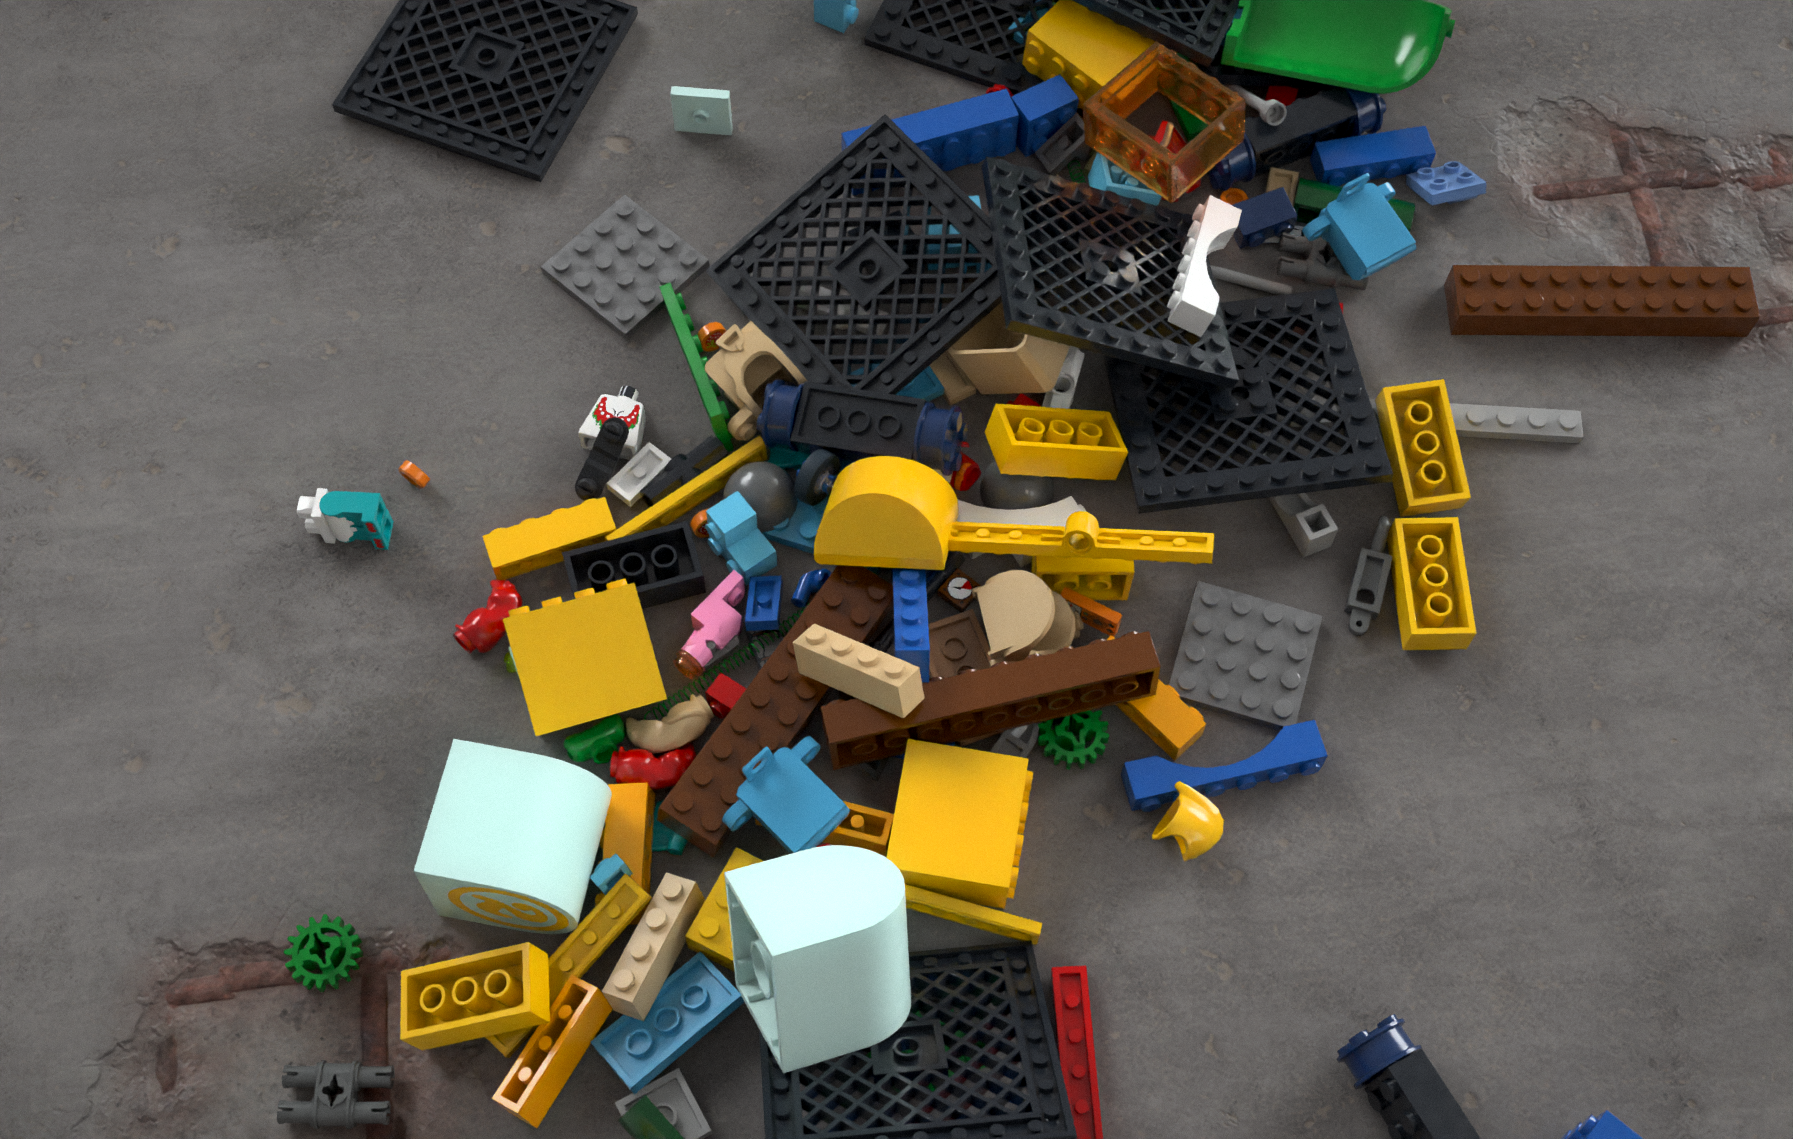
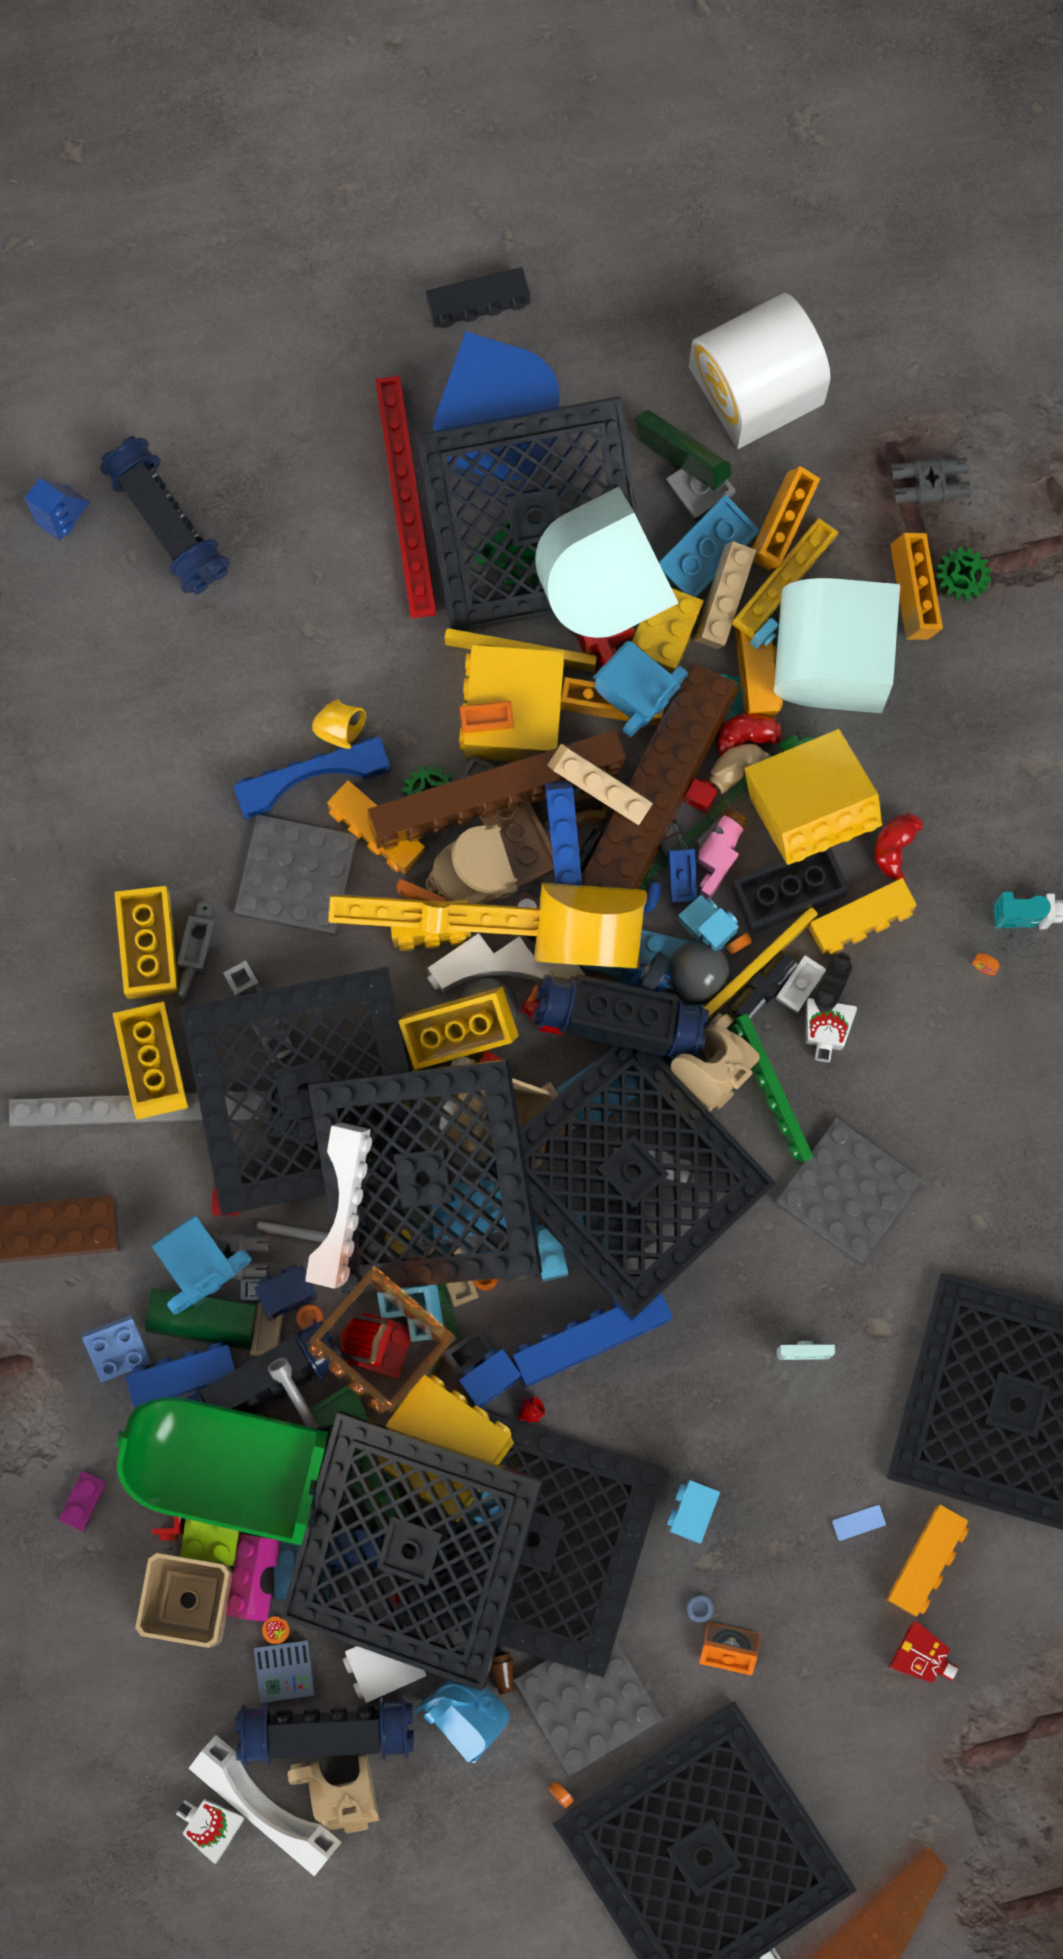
camera: 175 degrees right, 15 degrees up
(389, 933) = (917, 586): none -> light orange brick
(475, 996) = (845, 542): yellow brick -> none
(710, 334) = (761, 1121): orange tile -> none
(996, 786) = (486, 717): none -> orange tile
(1471, 67) = (82, 1501): none -> magenta plate

